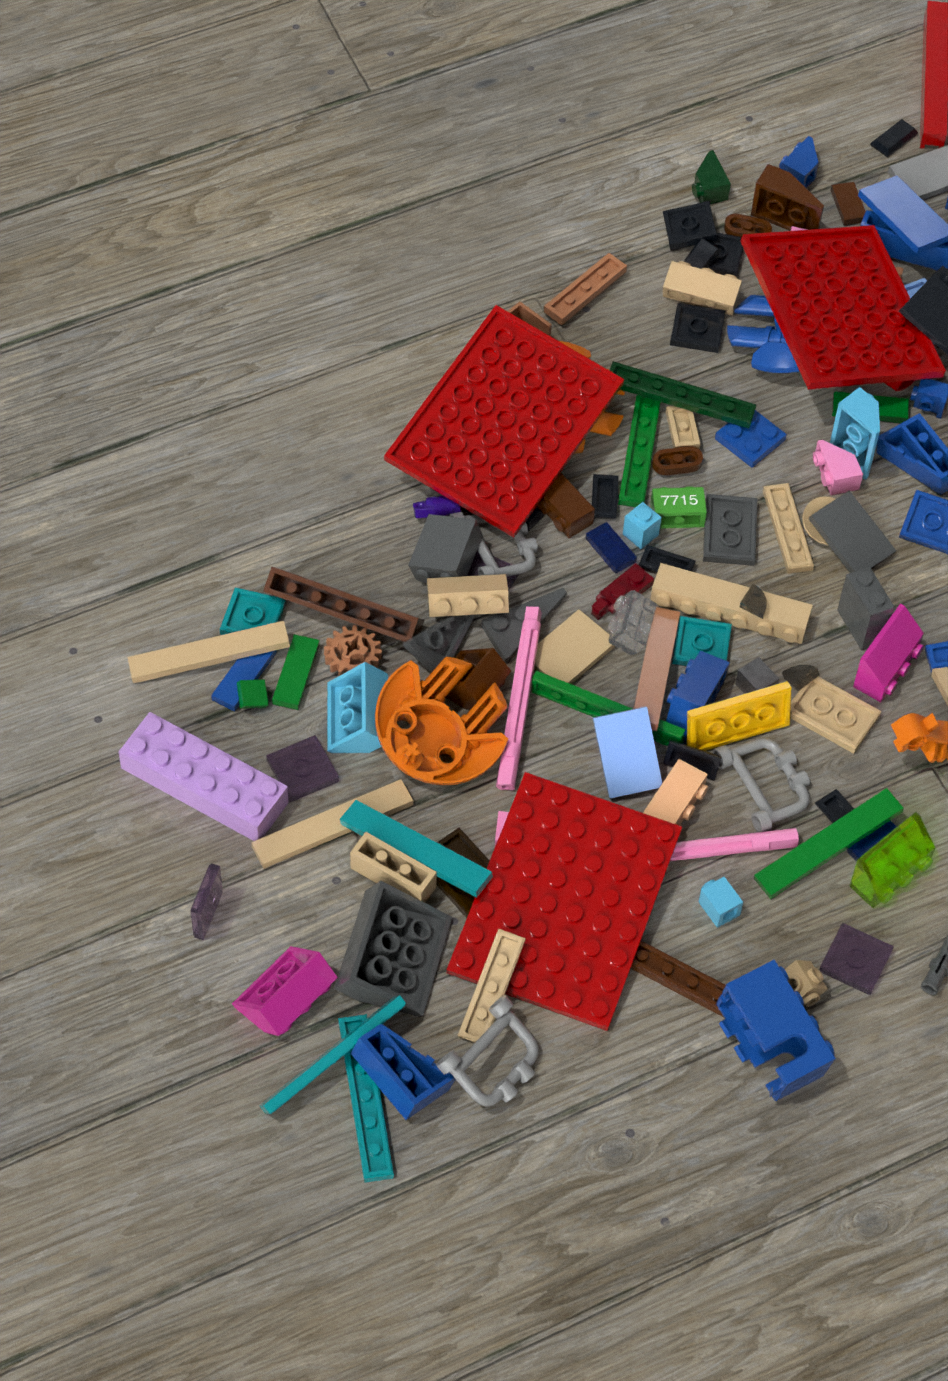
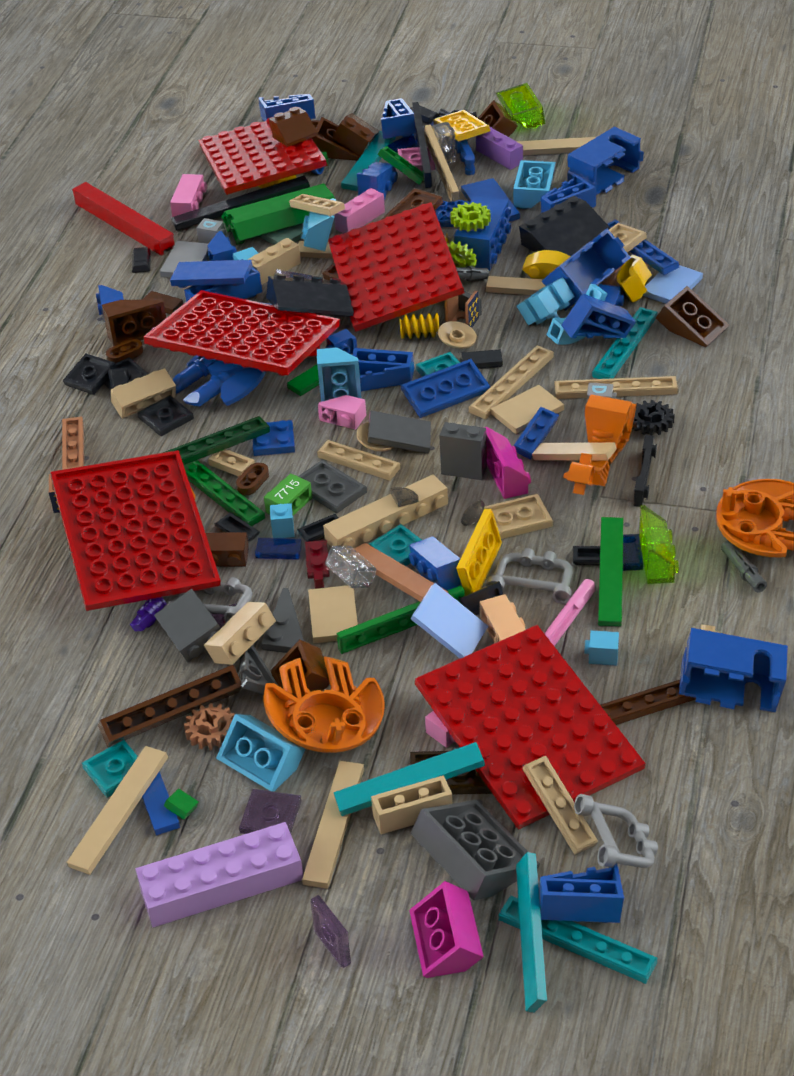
camera: 45 degrees left, 15 degrees down
(295, 672) = (190, 771): green tile -> none
(519, 699) = (340, 652): bright pink piece -> none
(711, 181) = (70, 345): dark green slope -> none
(755, 676) = (457, 534): flat silver brick -> none
(856, 959) = (705, 608): clear purple tile -> none

